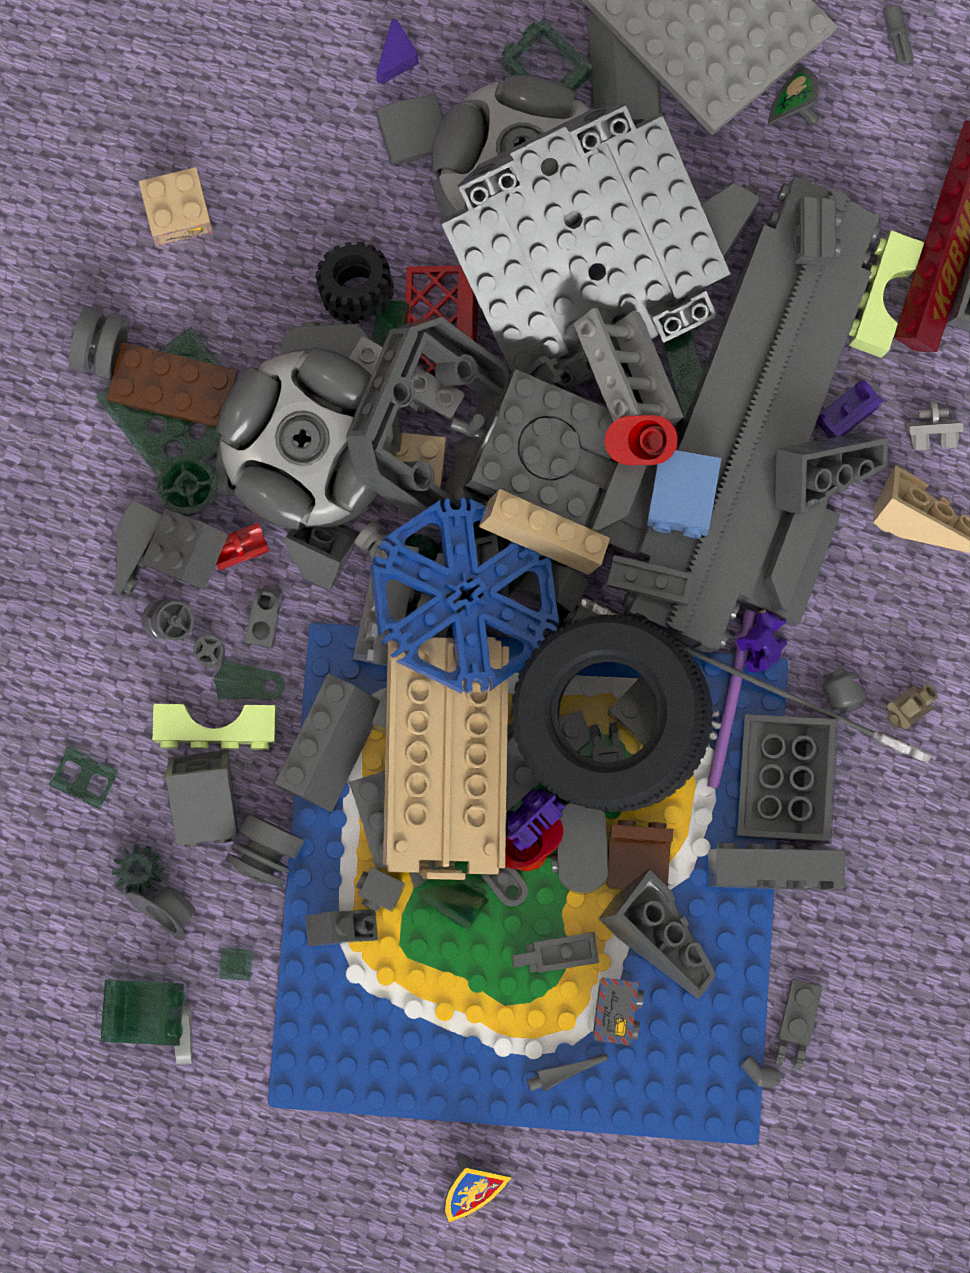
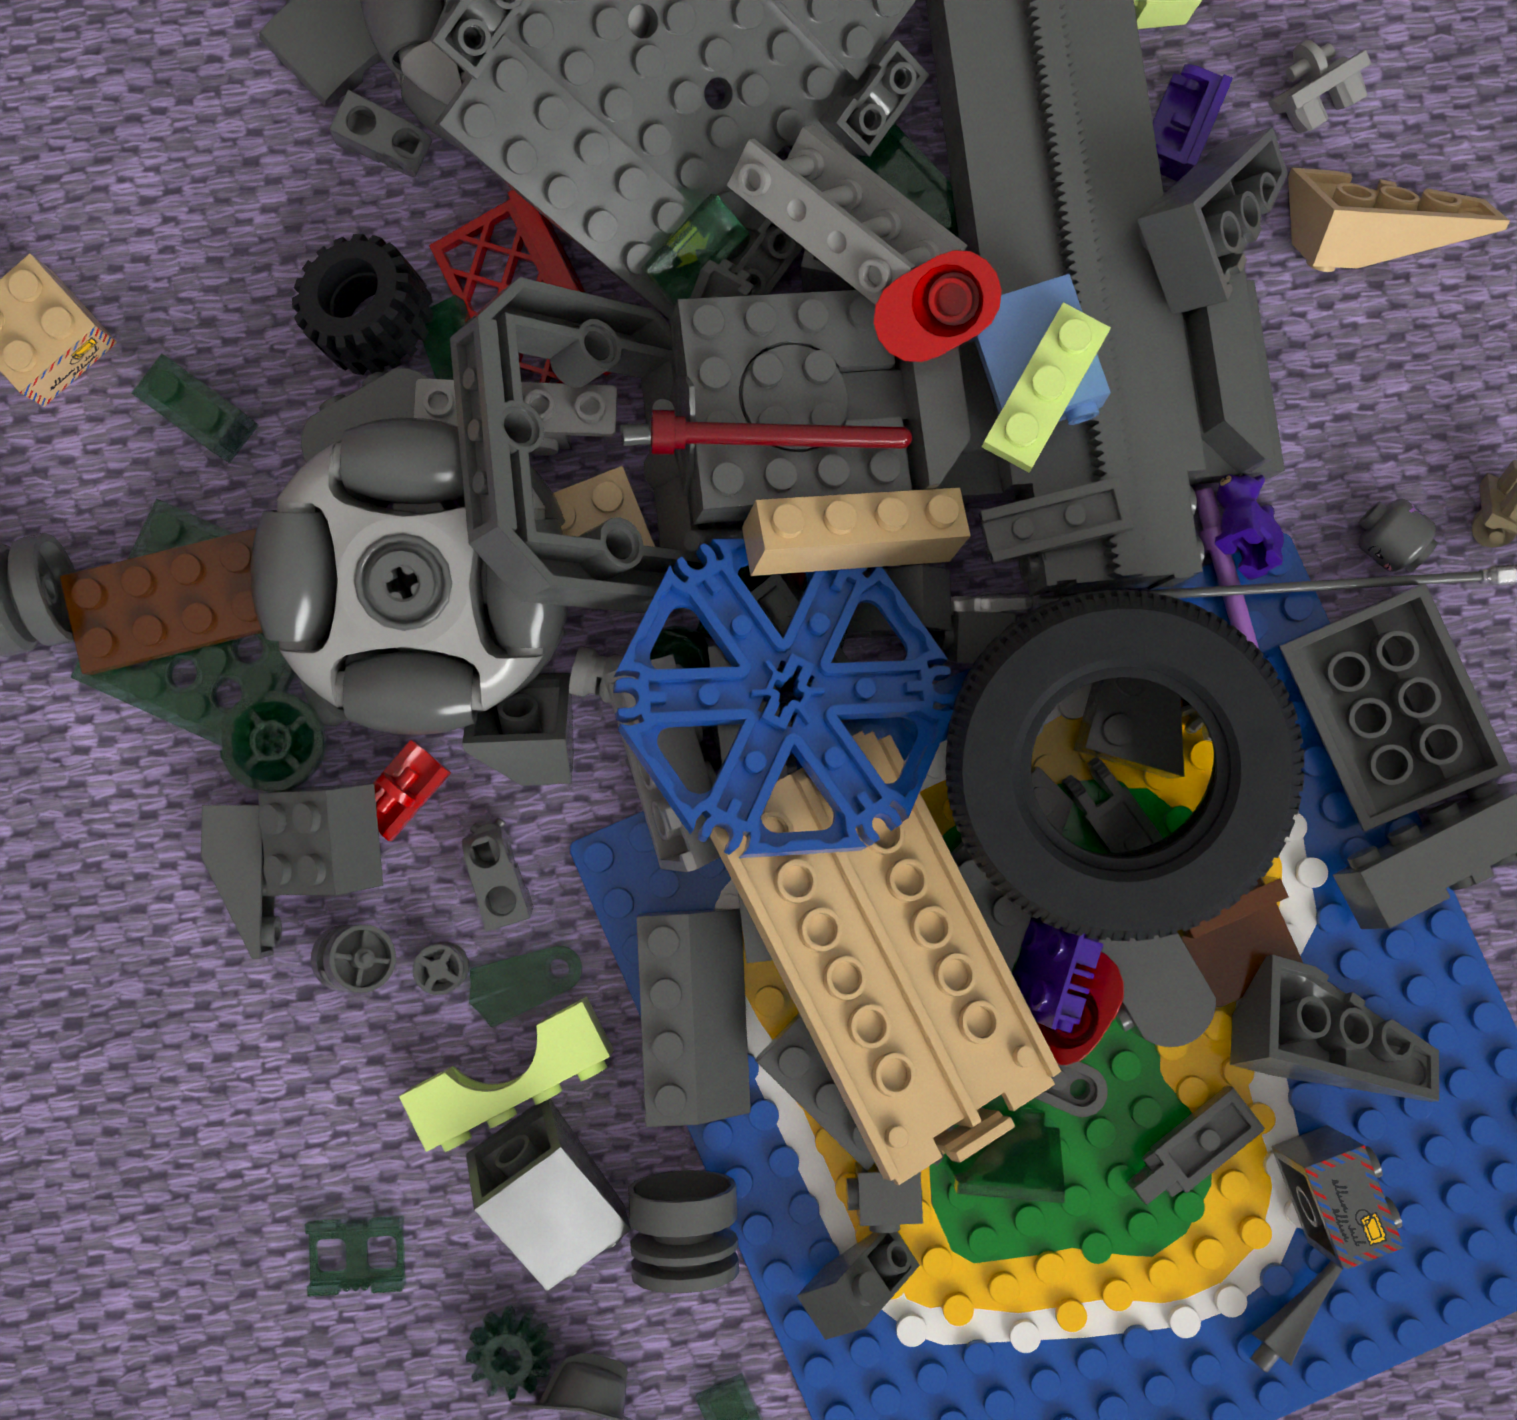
camera: 30 degrees left, 5 degrees up
(237, 290) = (195, 408): none -> clear green brick
(411, 195) = (379, 134): none -> dark grey leg
(476, 434) = (673, 432): none -> dark red piece
(550, 341) = (704, 236): none -> clear green tile
(676, 509) = (1046, 387): none -> yellowish green plate

